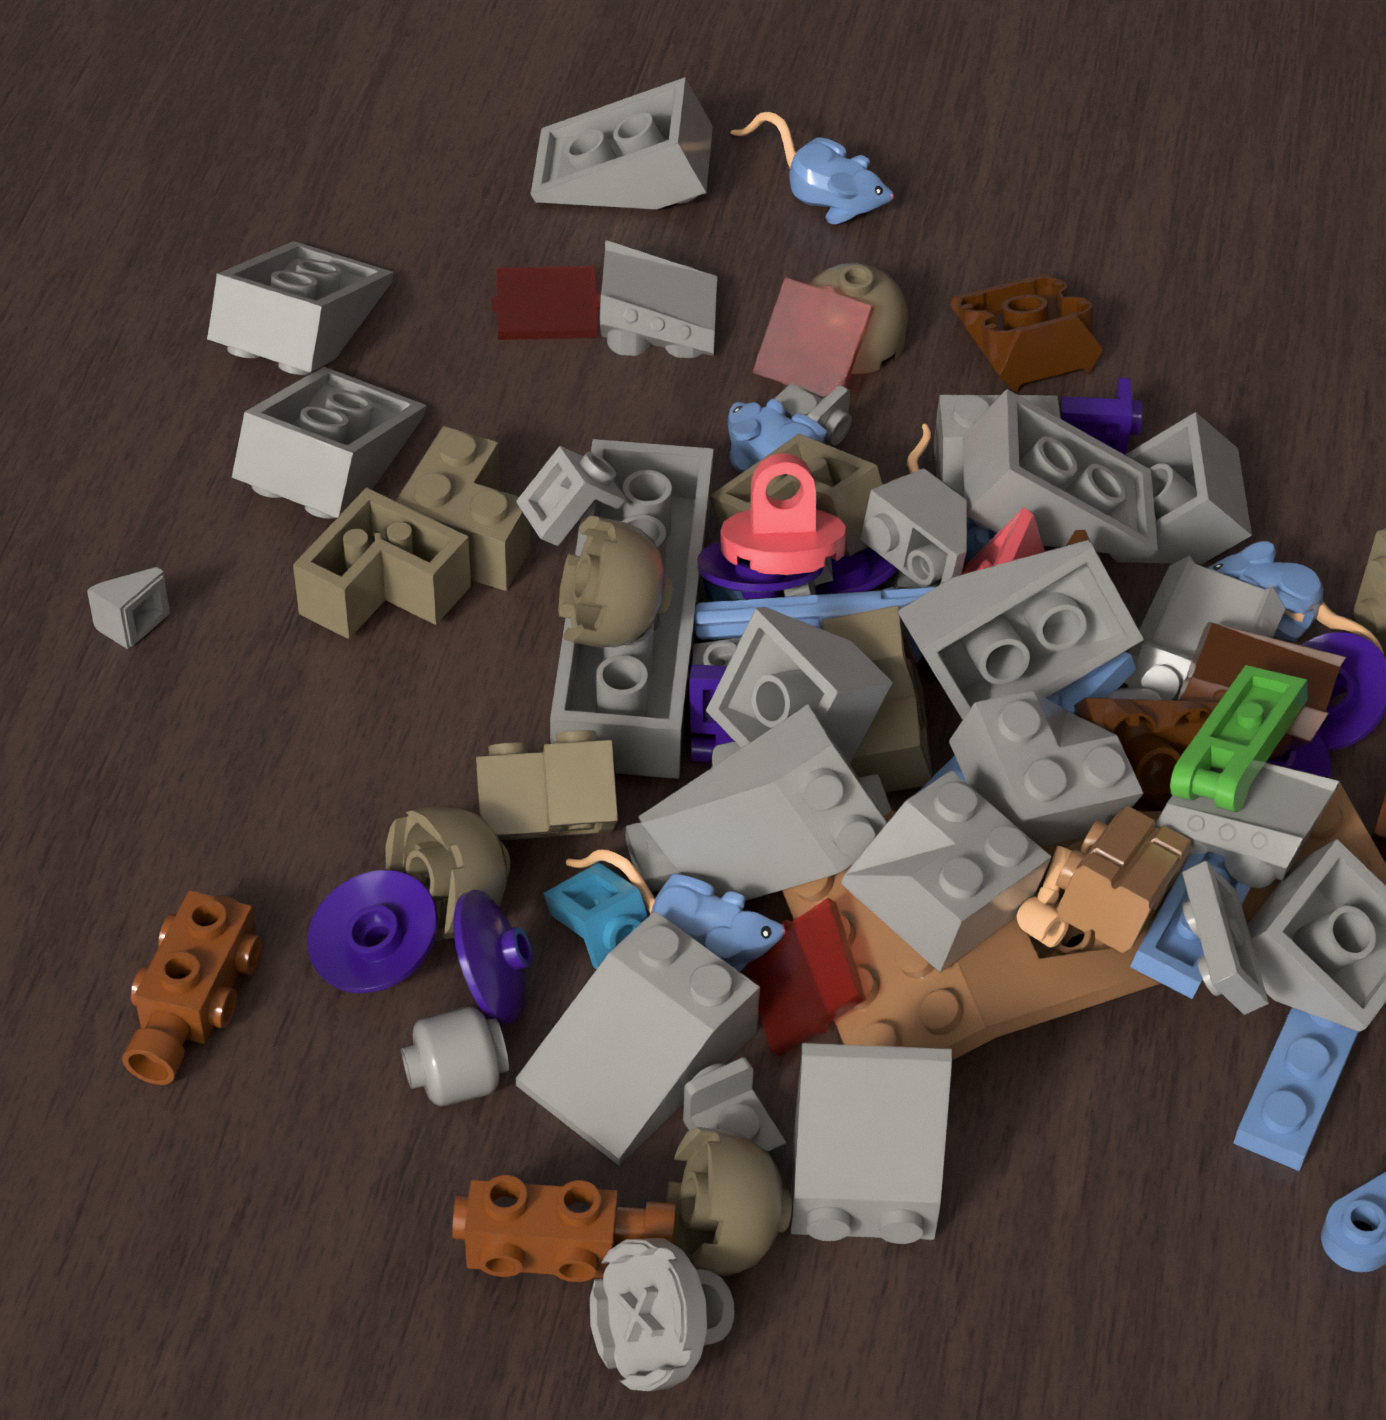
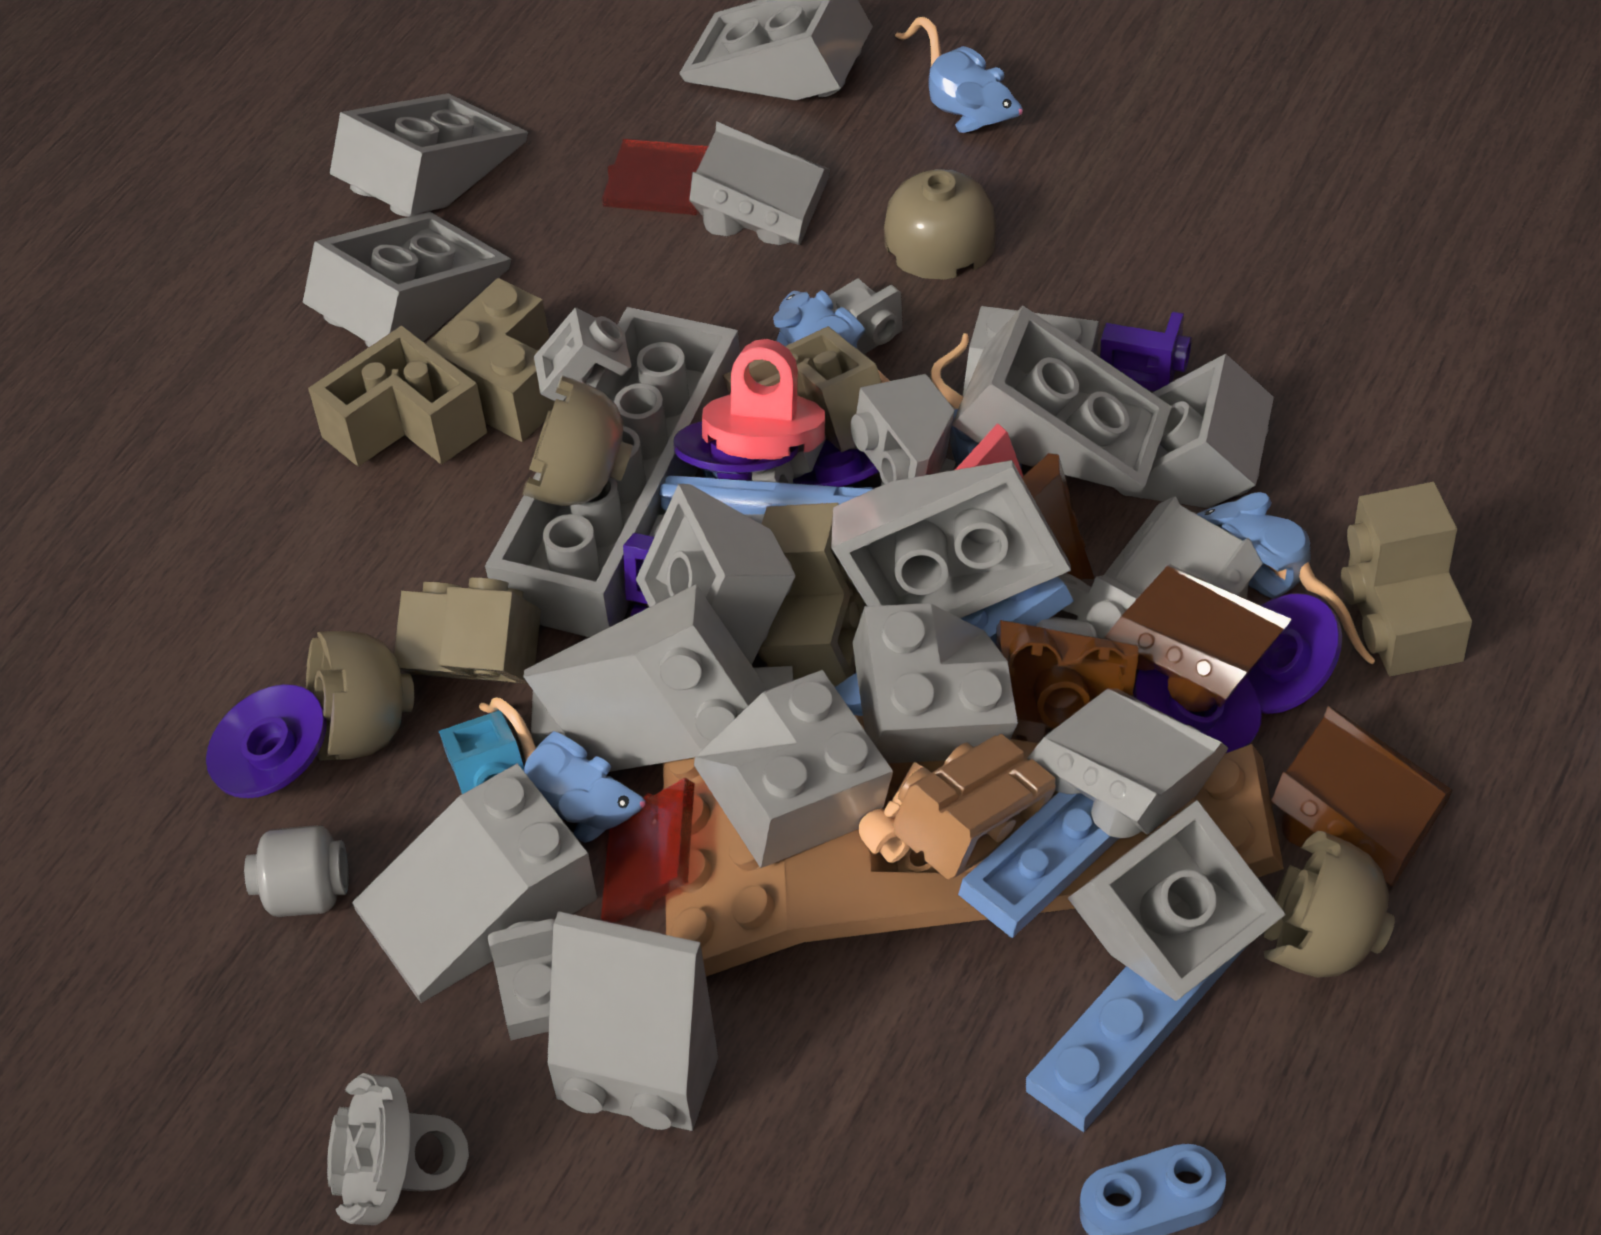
camera: 20 degrees right, 0 degrees up
(129, 605) = (171, 407): light grey slope -> none
(209, 943) = (92, 761): dark orange brick -> none
(491, 956) = (354, 782): dark purple dish -> none
(546, 1236) = (302, 1055): dark orange brick -> none
(727, 1201) = (490, 1058): dark tan cylinder -> none
(812, 338) = (887, 237): clear red piece -> none
(1030, 328) = (1112, 255): reddish brown slope -> none
(1220, 924) = (1047, 881): light grey plate -> none
(1239, 737) = (1133, 682): bright green plate -> none

